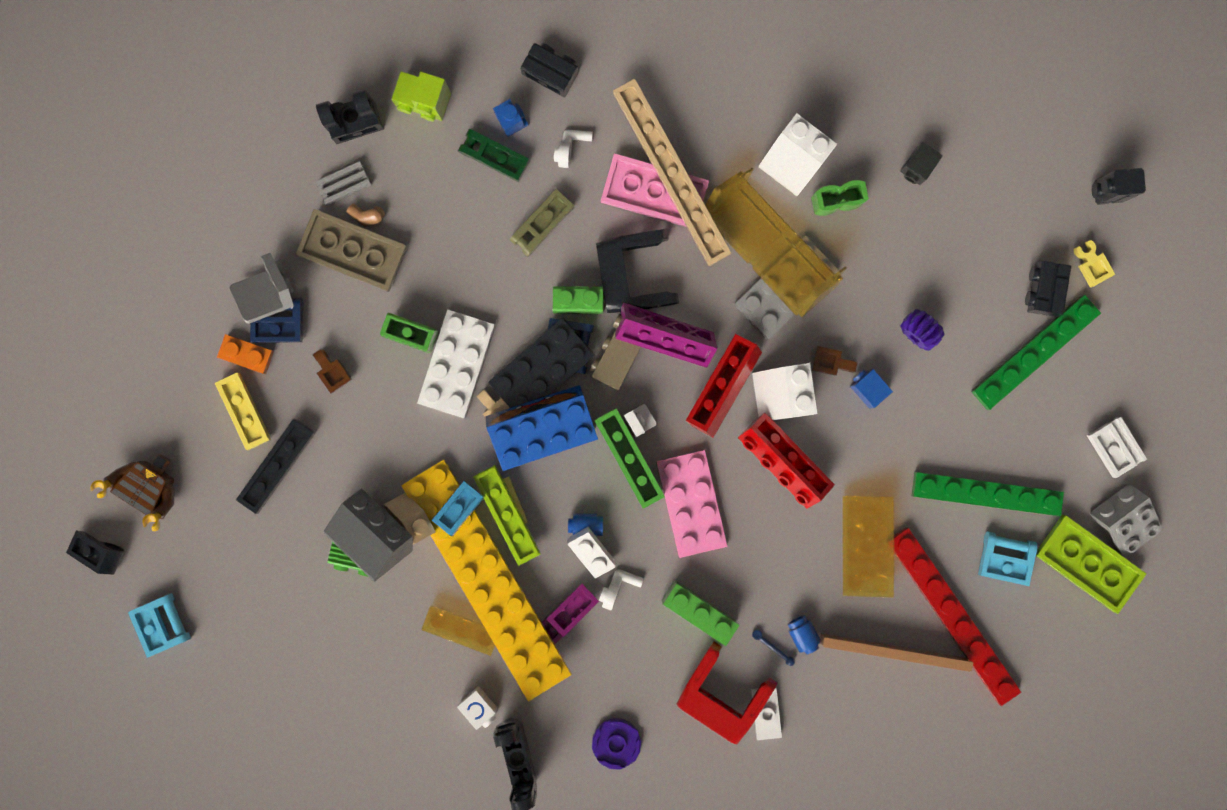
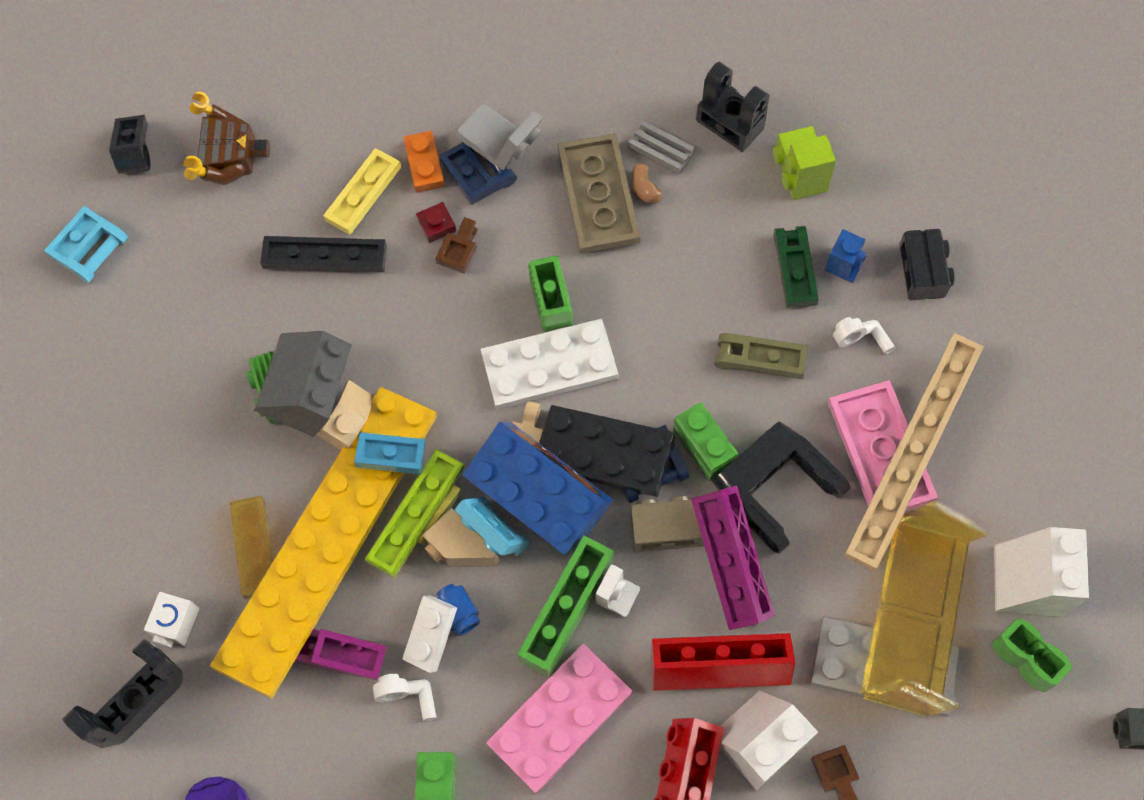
camera: 65 degrees right, 20 degrees down
(300, 374) = (436, 222): none -> dark red plate
(542, 500) = (457, 544): none -> tan slope
(548, 473) = (498, 535): none -> medium azure plate

